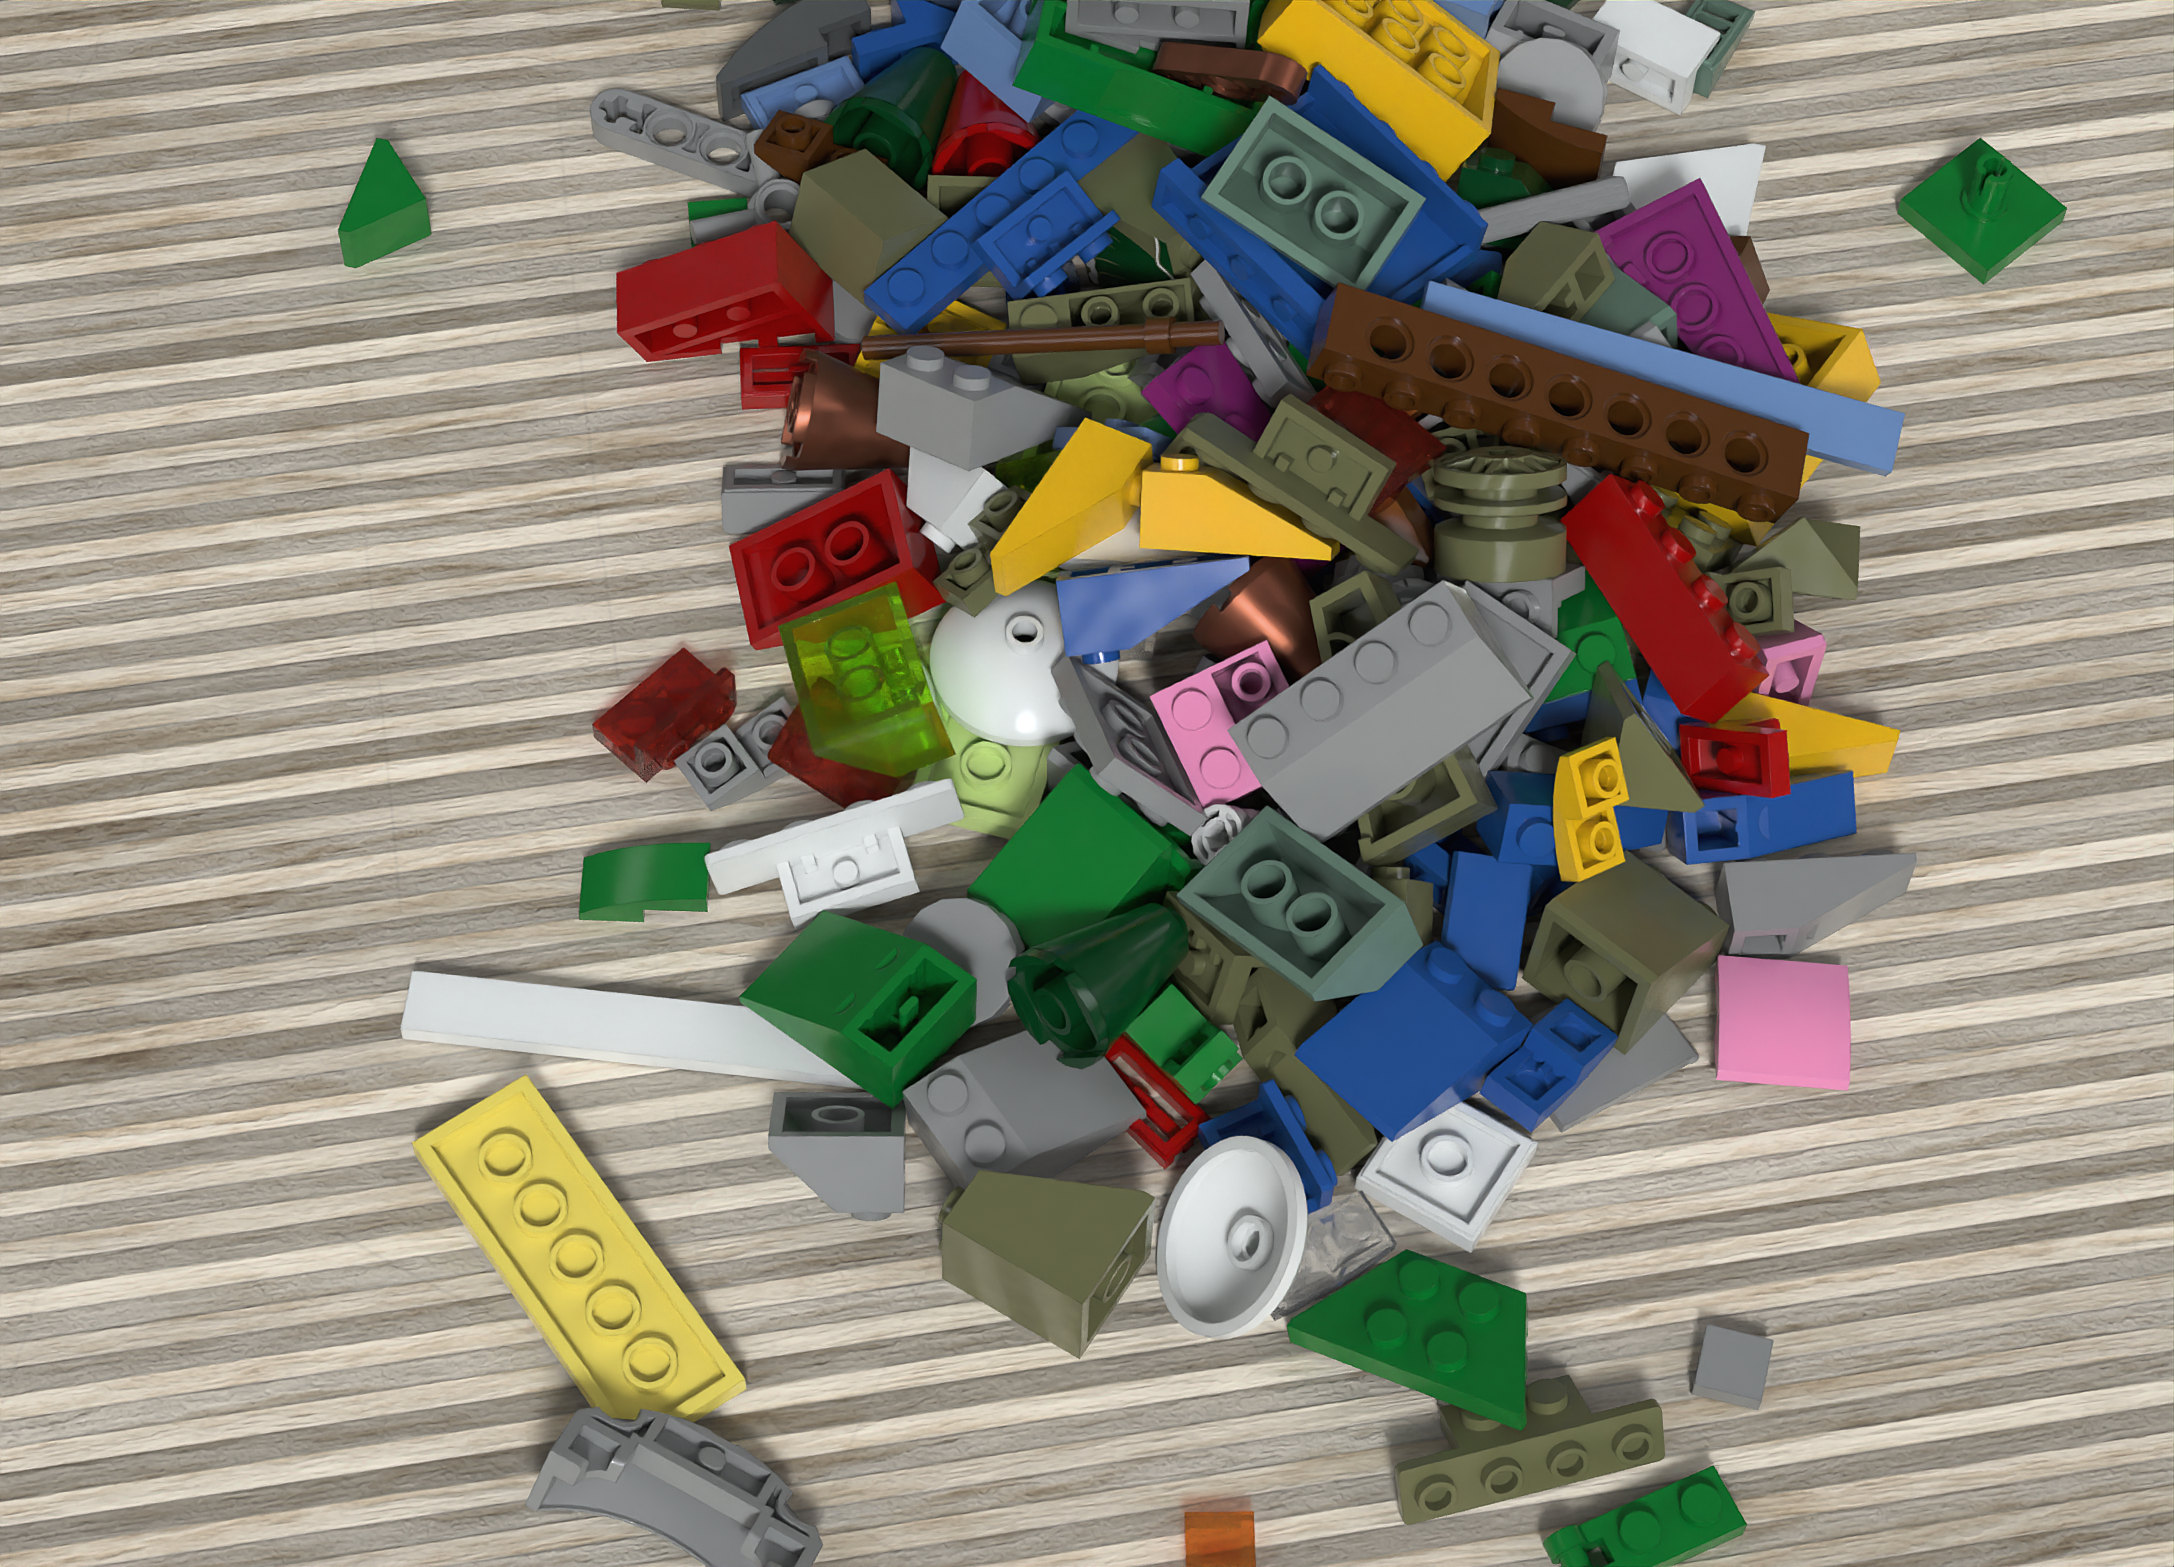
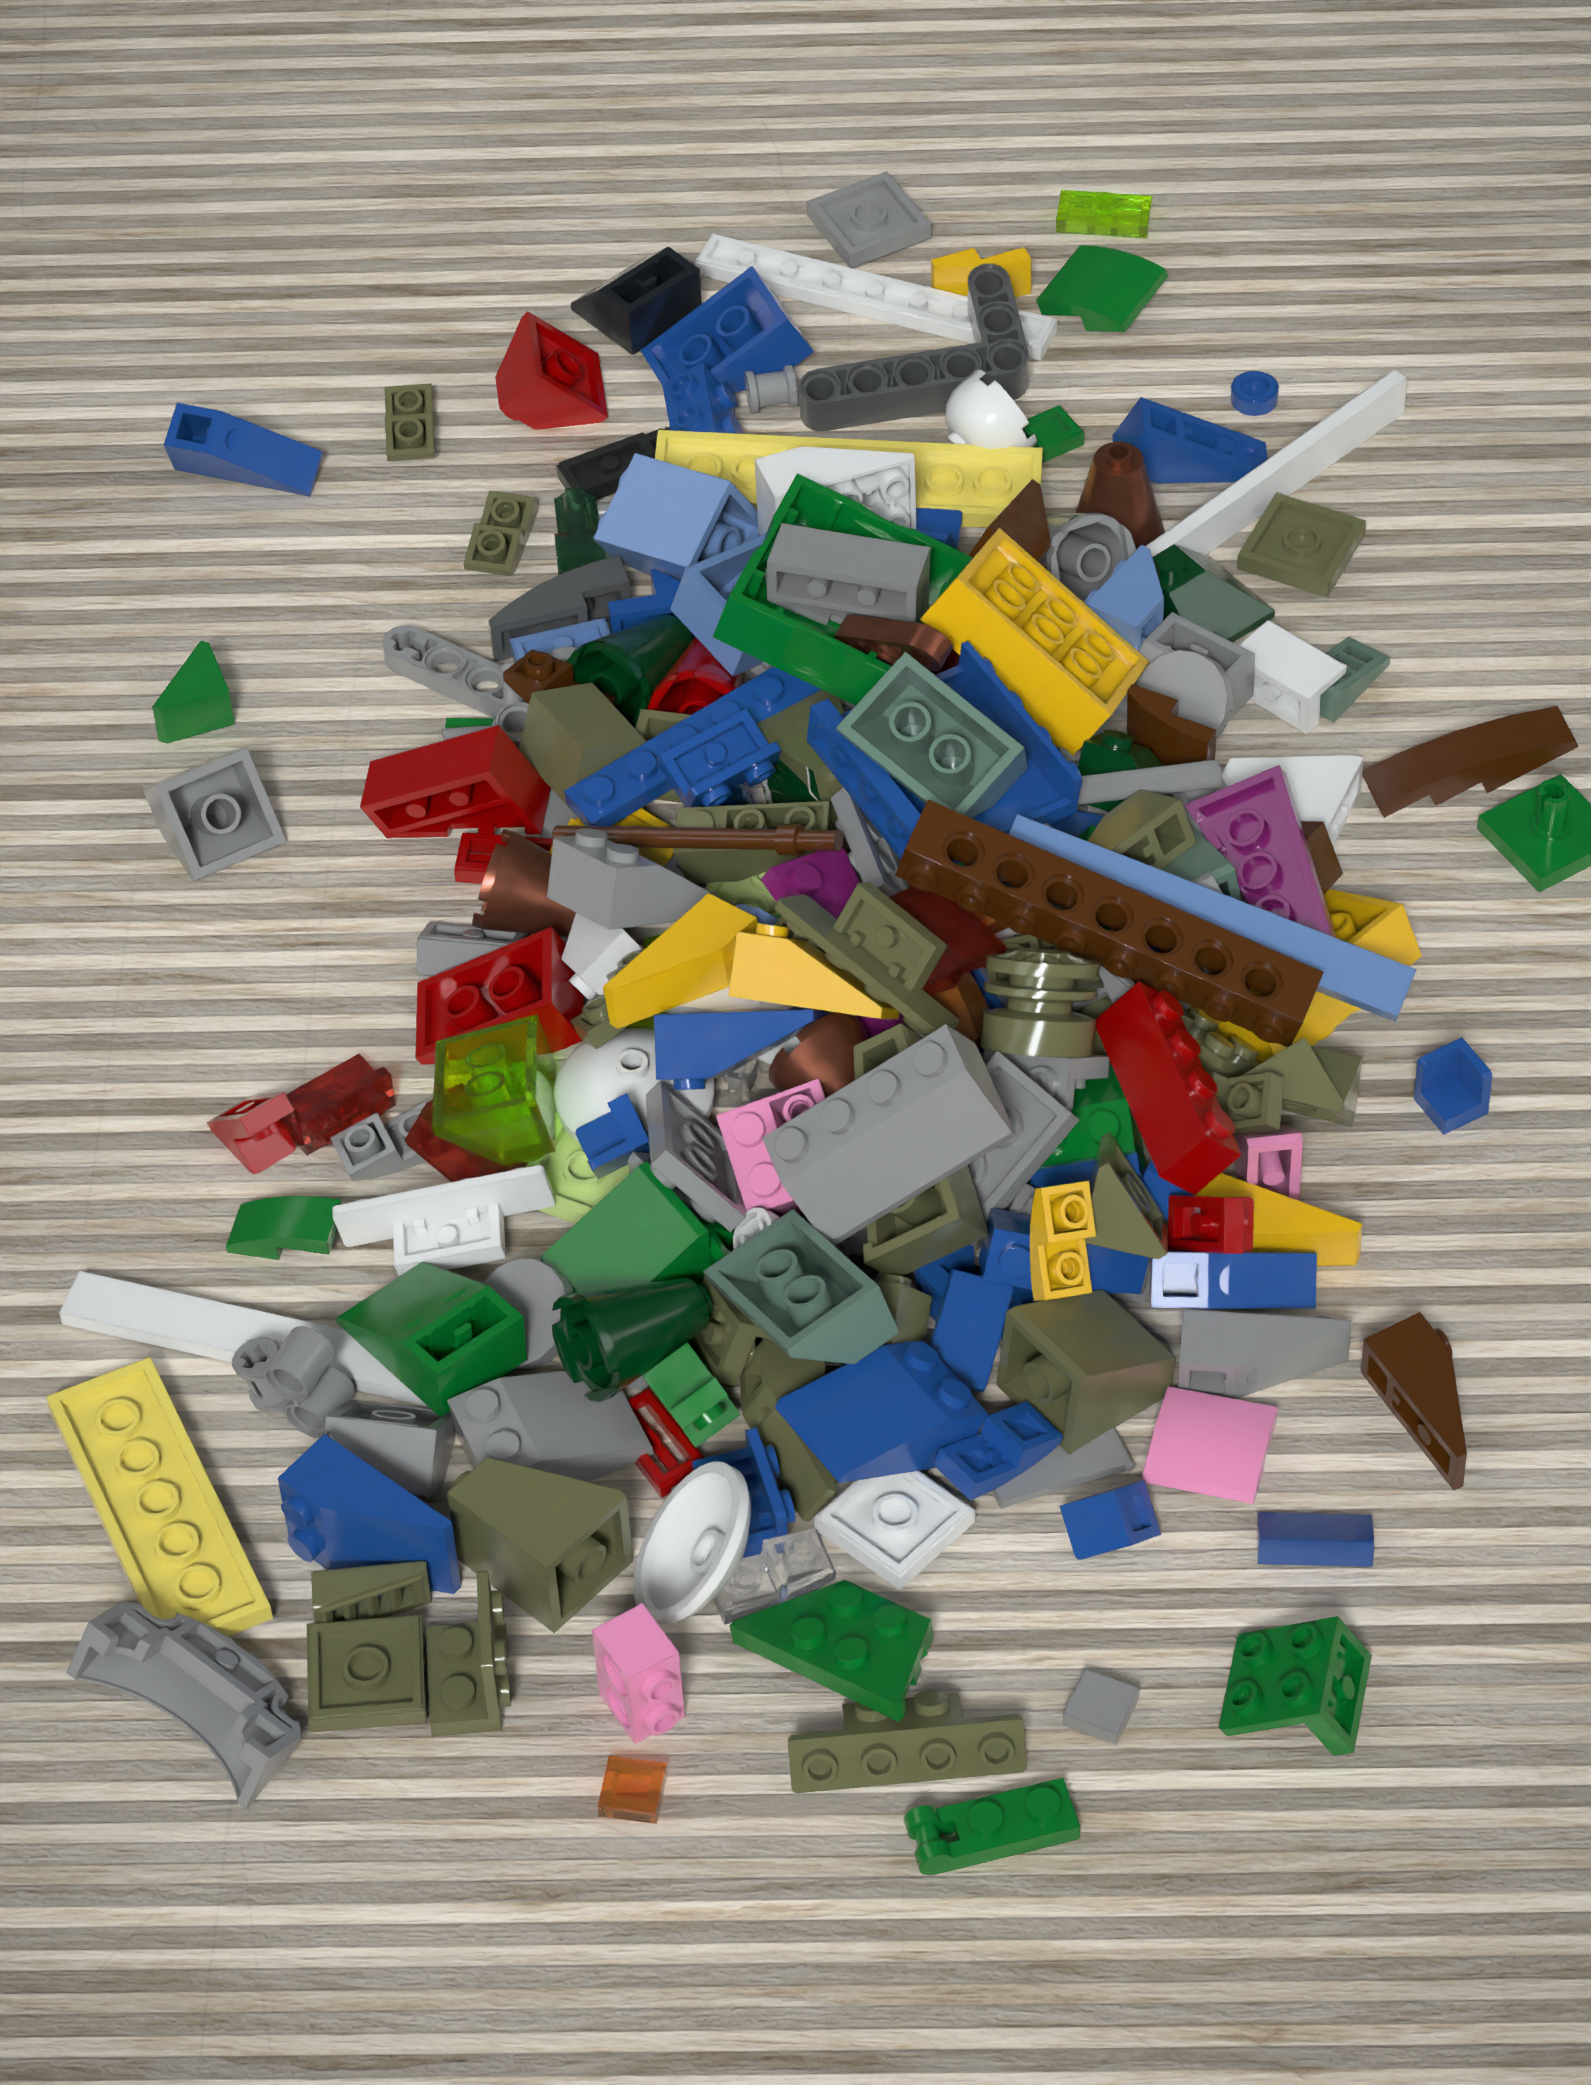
camera: 15 degrees right, 10 degrees down
(440, 356) = (215, 813): none -> light grey slope
(581, 759) = (255, 1130): none -> slope
(708, 1083) = (294, 1378): none -> light grey piece
(838, 1261) = (358, 1517): none -> blue slope
(849, 1347) = (369, 1591): none -> olive slope
(876, 1447) = (366, 1673): none -> olive plate
(998, 1424) = (469, 1668): none -> olive bracket
(1021, 728) = (613, 1137): none -> blue panel
(1207, 1412) = (639, 1673): none -> bright pink brick
(1692, 1133) = (1110, 1520): none -> blue panel
(1878, 128) = (1459, 760): none -> reddish brown slope
(1924, 1122) = (1315, 1539): none -> blue slope
(1946, 1309) = (1298, 1676): none -> green bracket
(1953, 541) = (1452, 1086): none -> blue panel
(2002, 919) = (1416, 1380): none -> reddish brown slope

